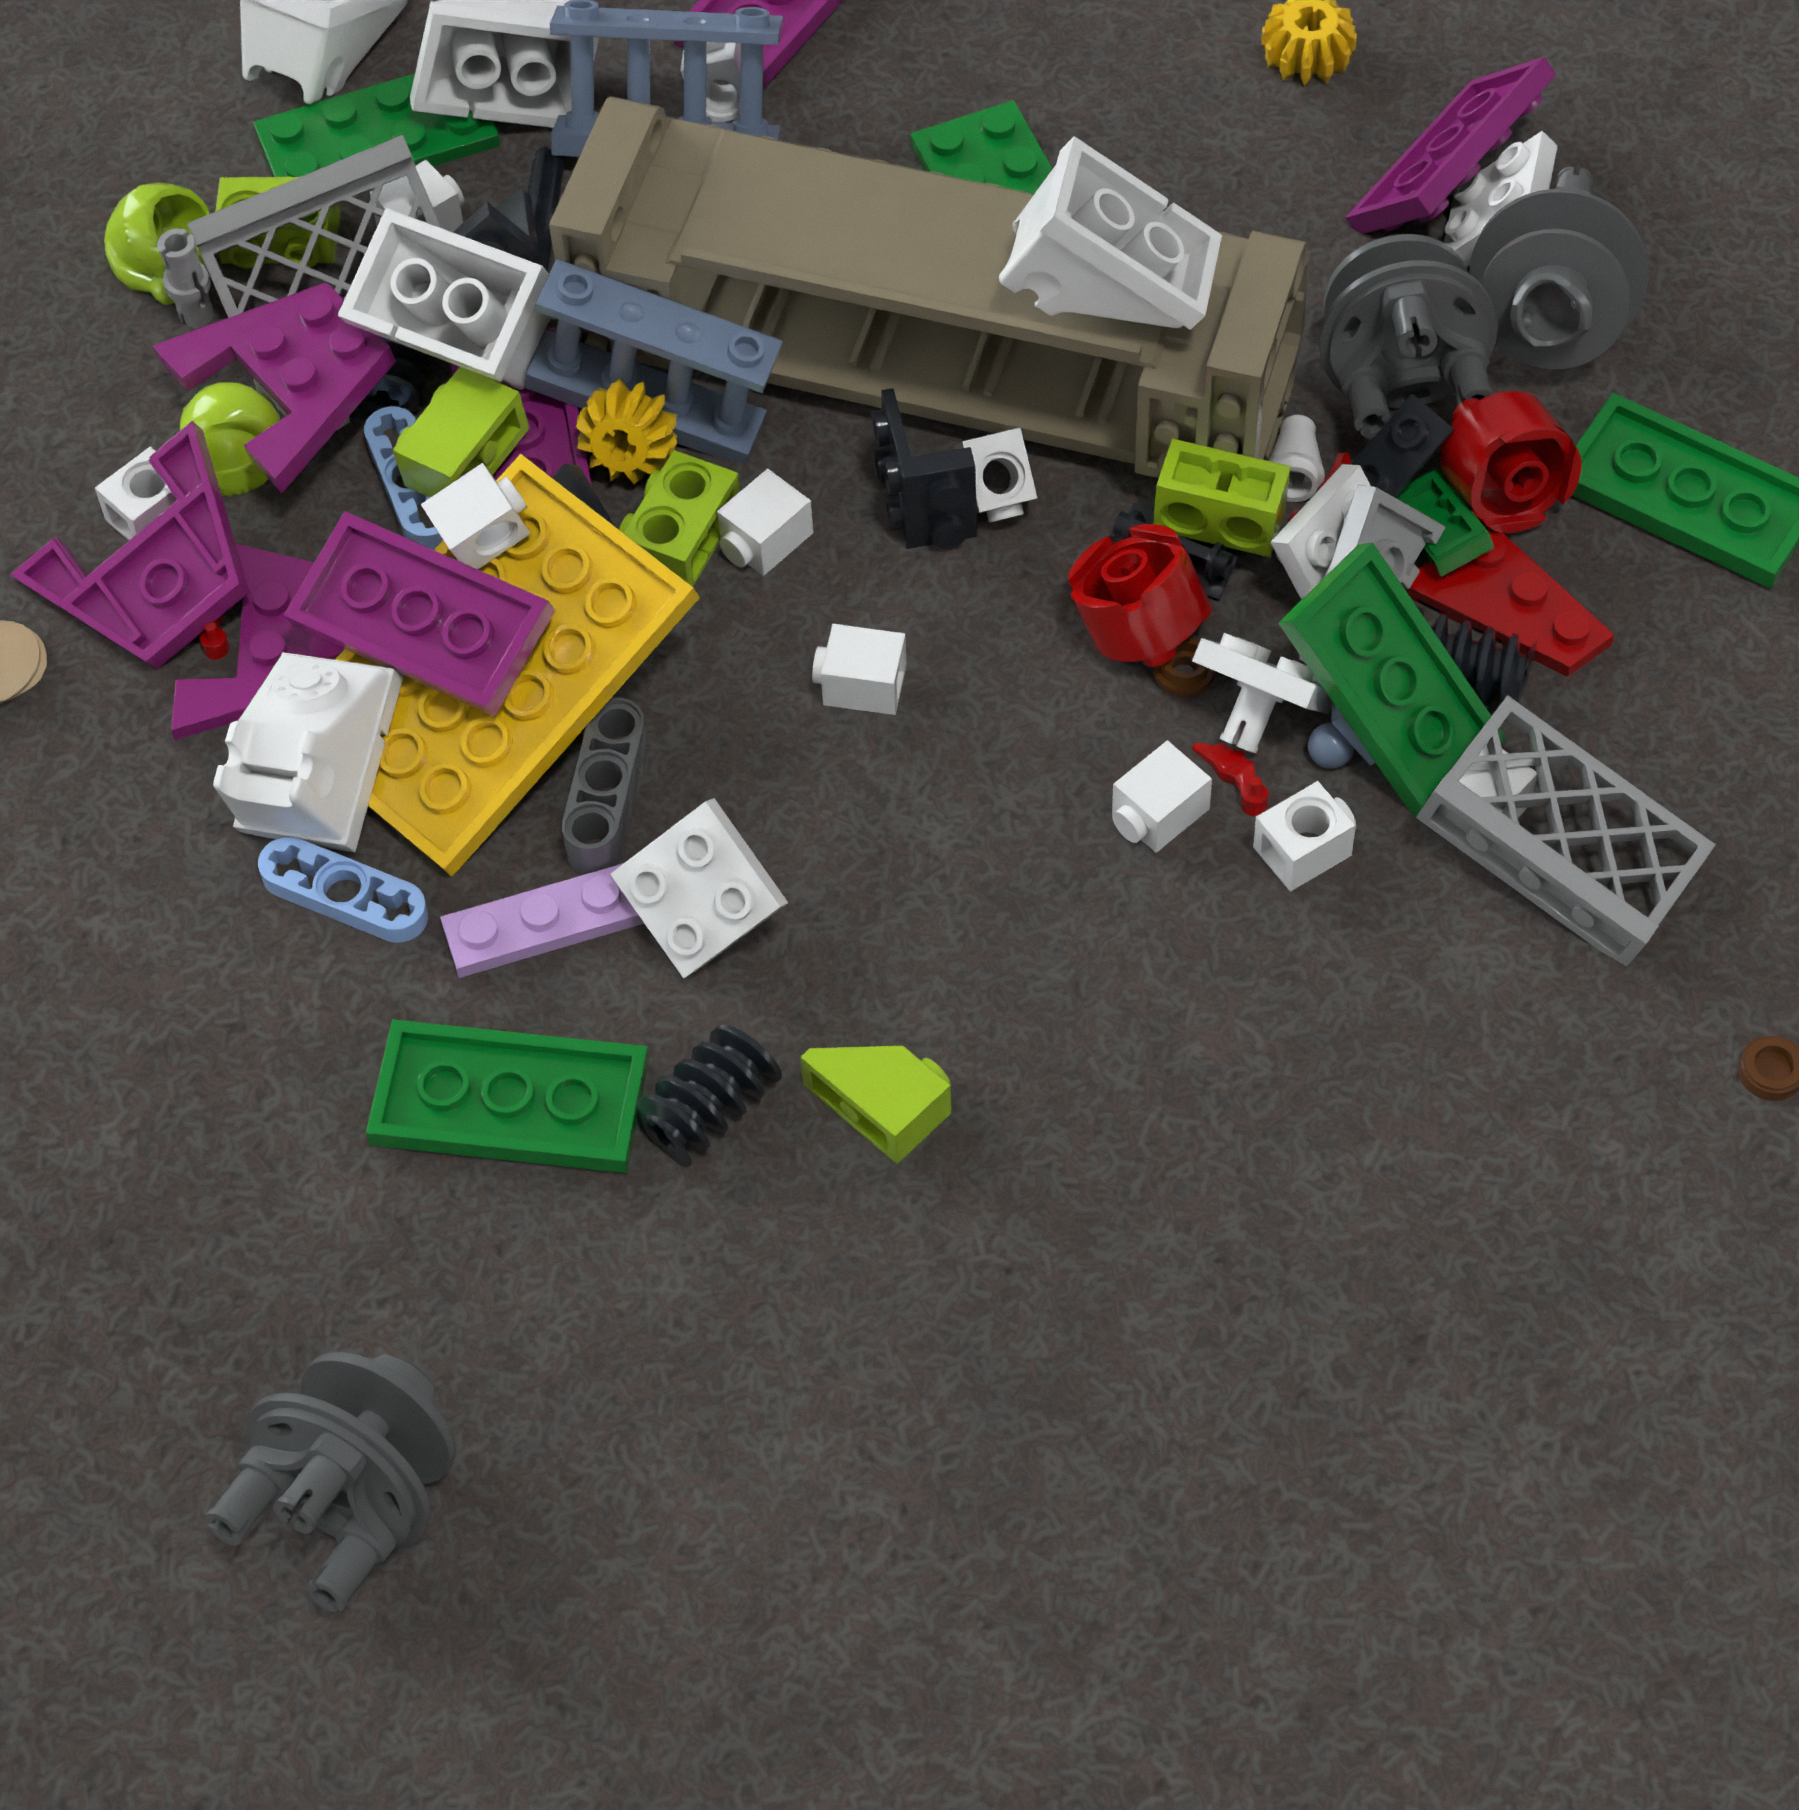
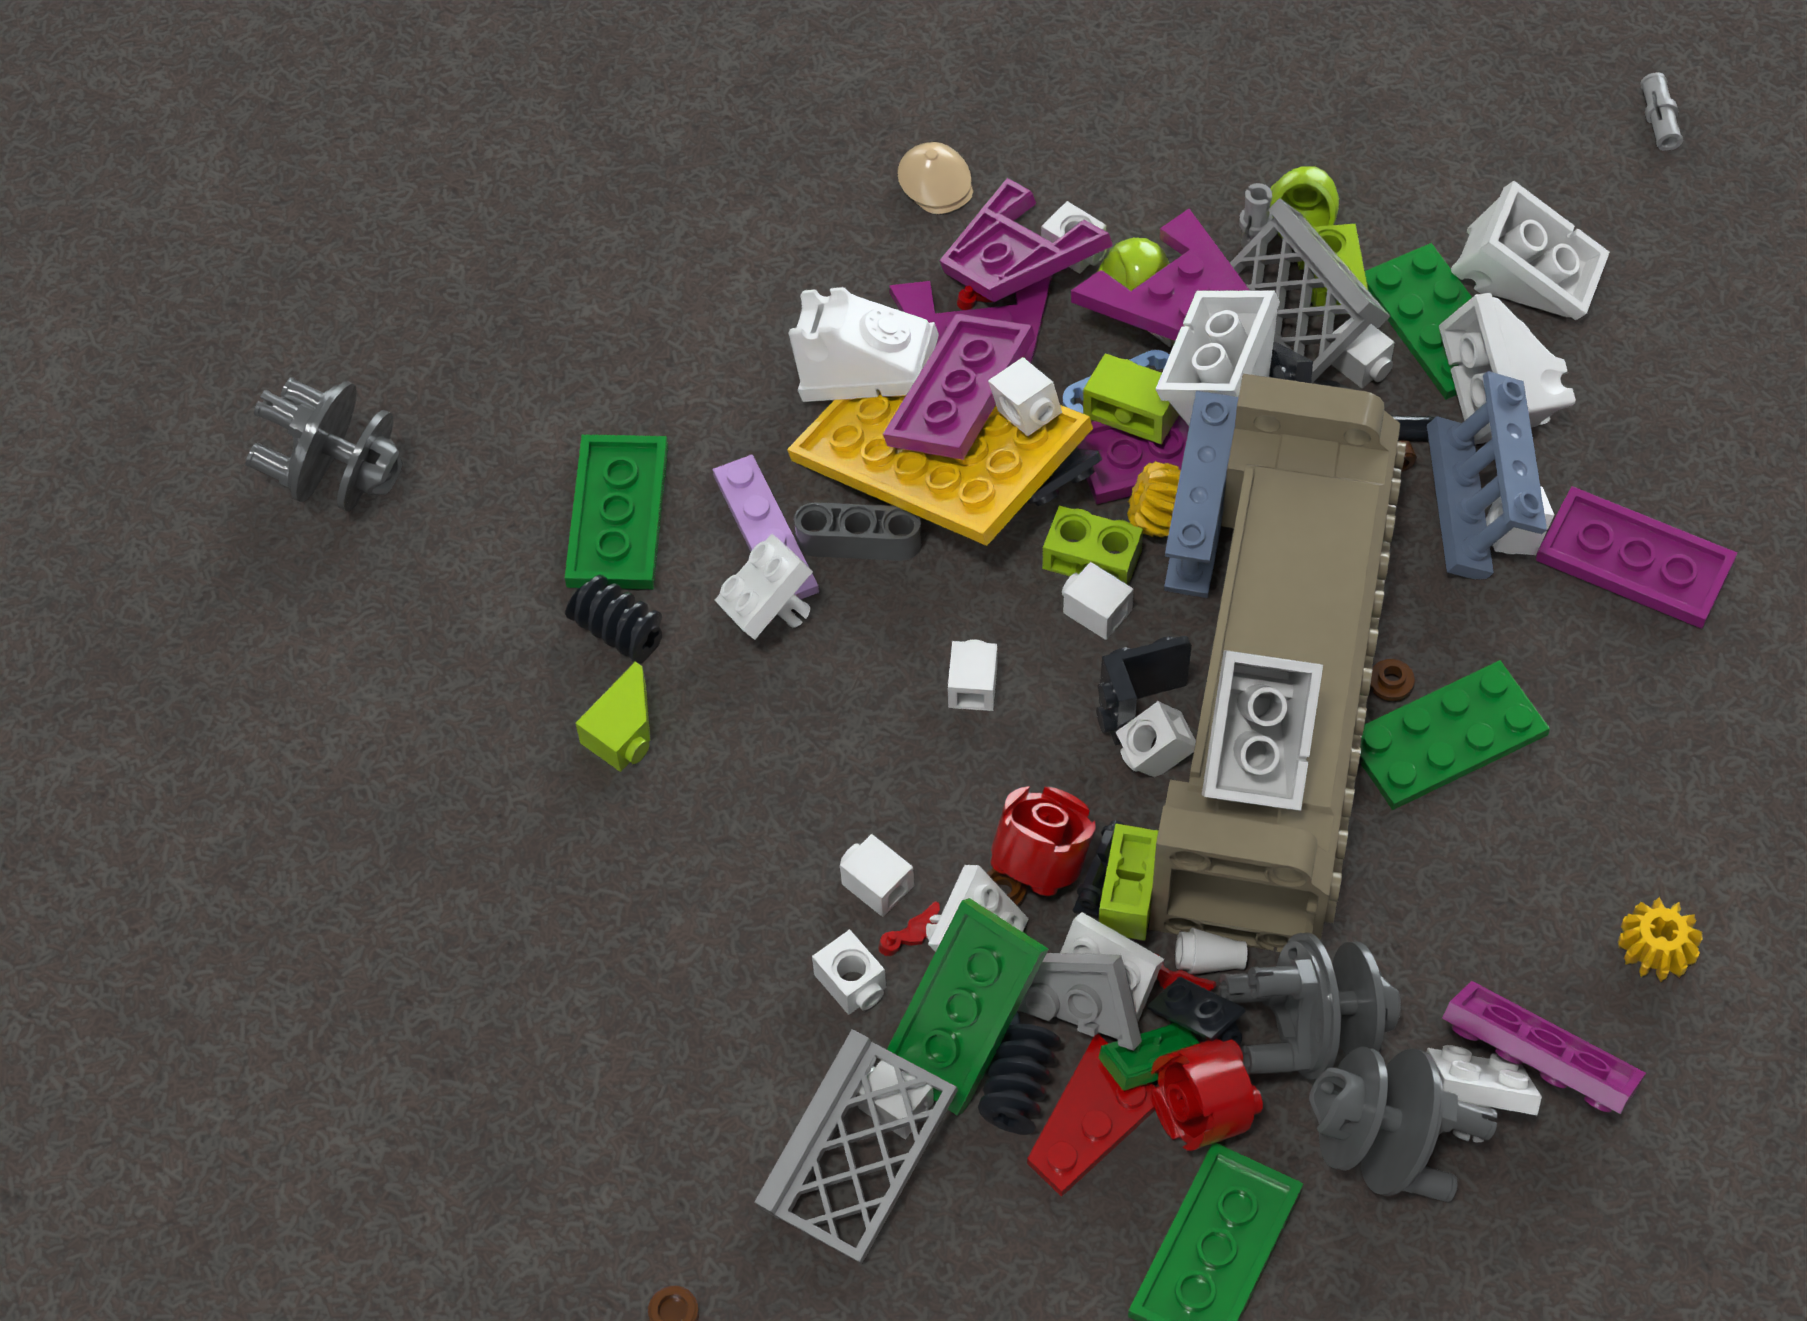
camera: 85 degrees right, 0 degrees up
(330, 868) = (774, 417): light blue beam -> none

